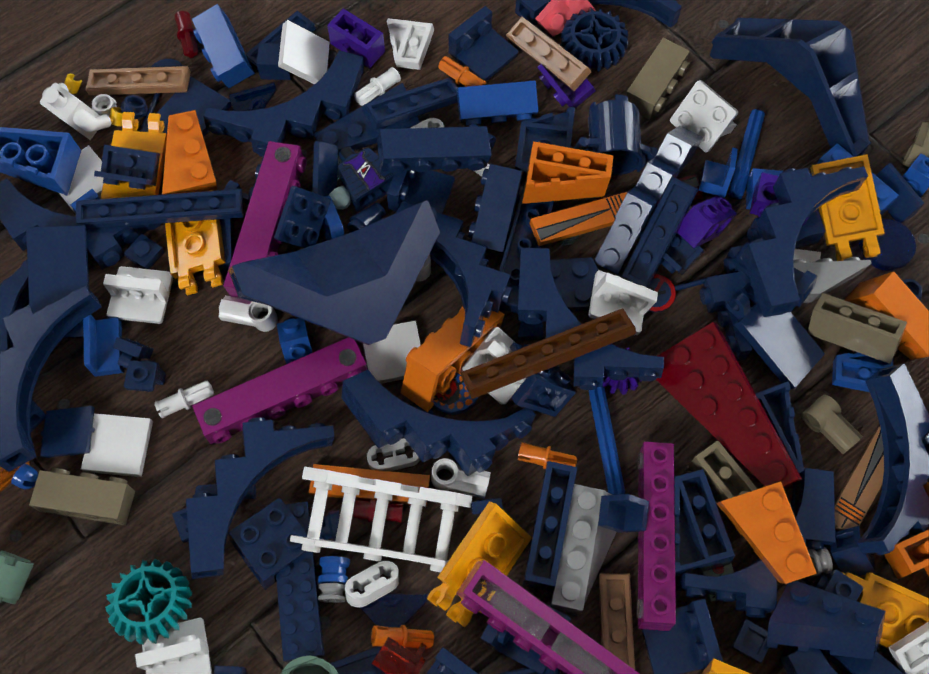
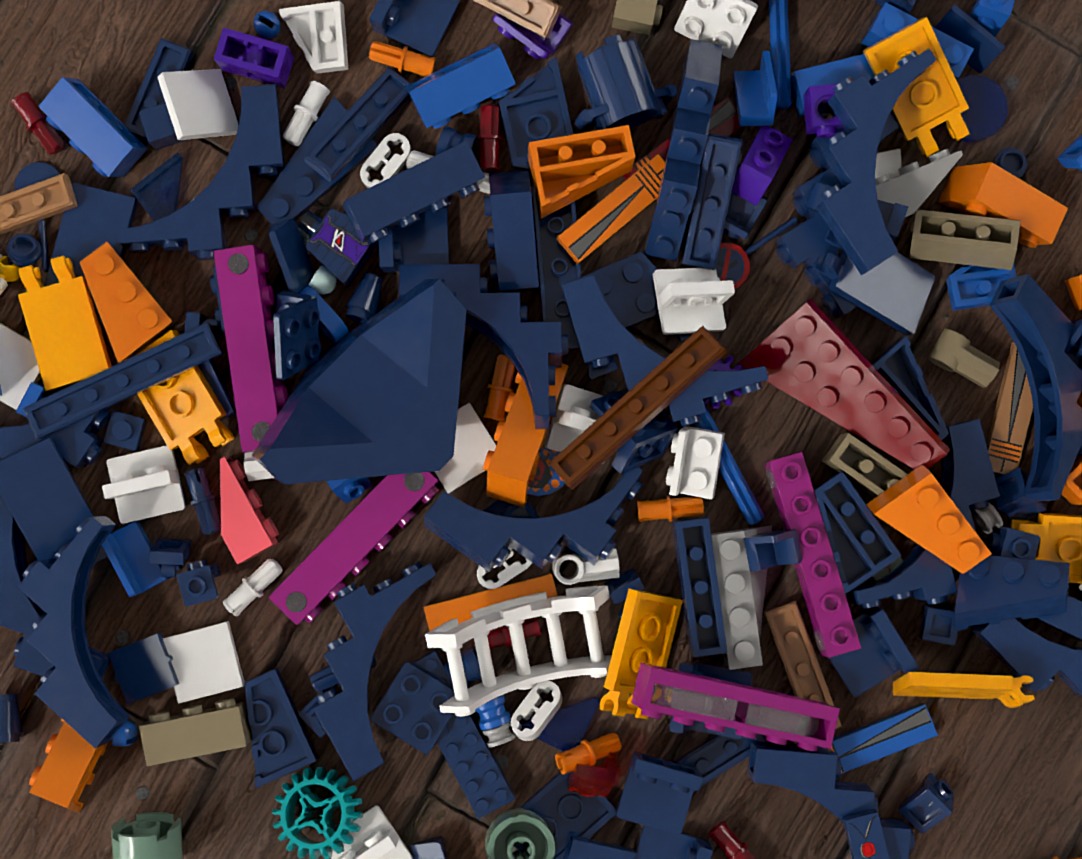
camera: 25 degrees left, 20 degrees up
(128, 165) = (62, 343): dark blue bracket -> none
(149, 522) = (276, 729): none -> dark blue wing
(177, 321) = (203, 501): none -> dark blue axle
(199, 344) = (242, 521): none -> coral slope
(375, 19) = (263, 30): none -> blue hinge
(450, 309) = (500, 388): none -> orange axle
(505, 144) = (489, 138): none -> dark red axle
(580, 426) = (695, 462): none -> white bracket

